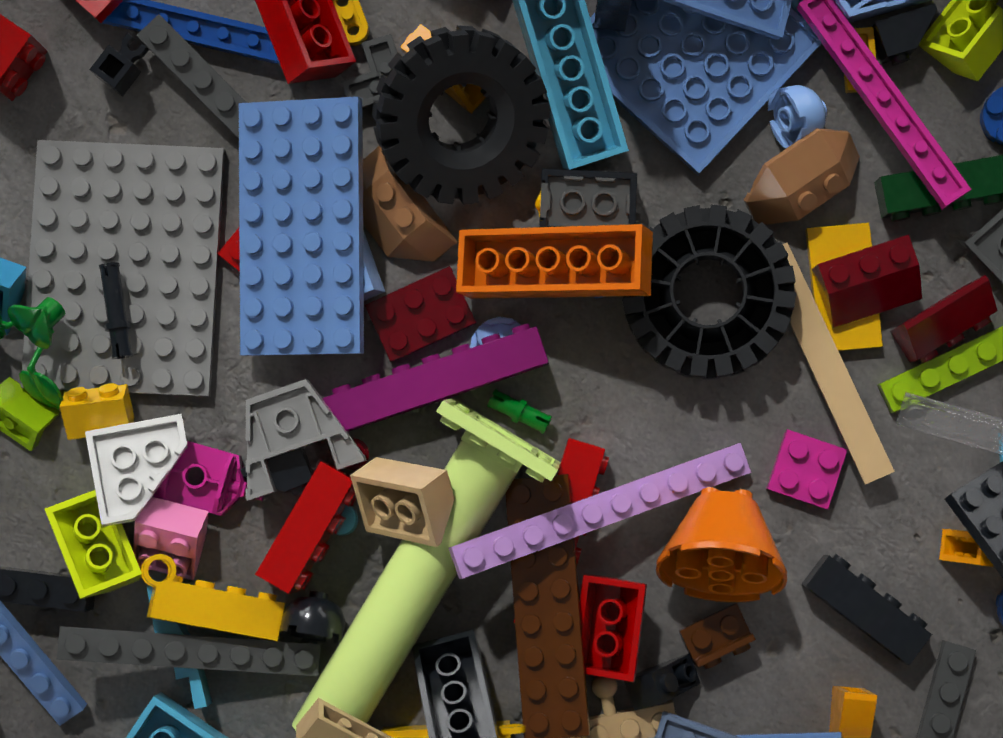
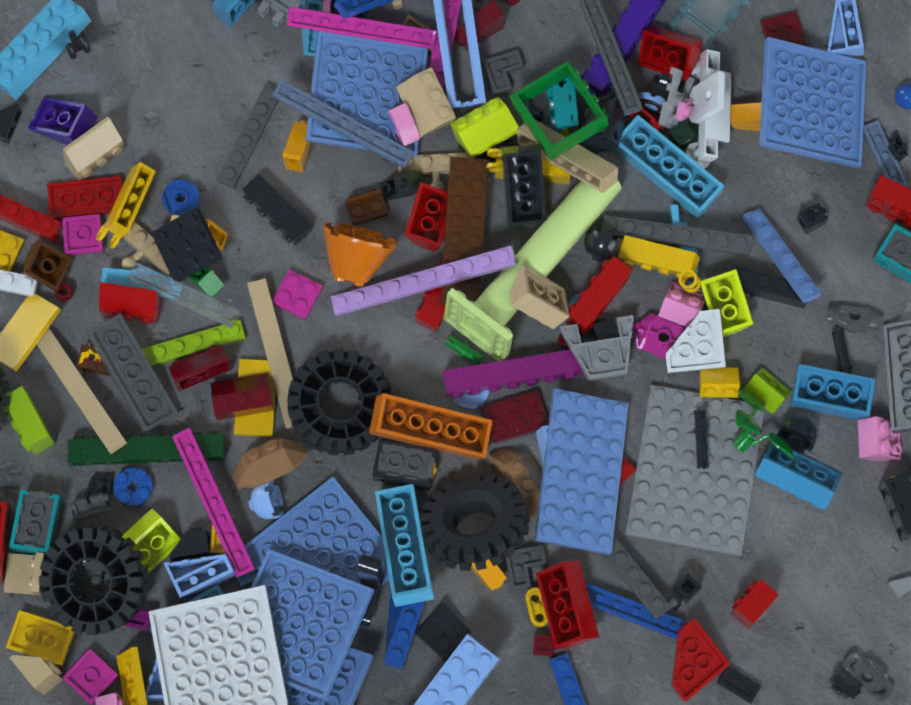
camera: 175 degrees left, 10 degrees down
(958, 464) = (207, 282): none -> slope

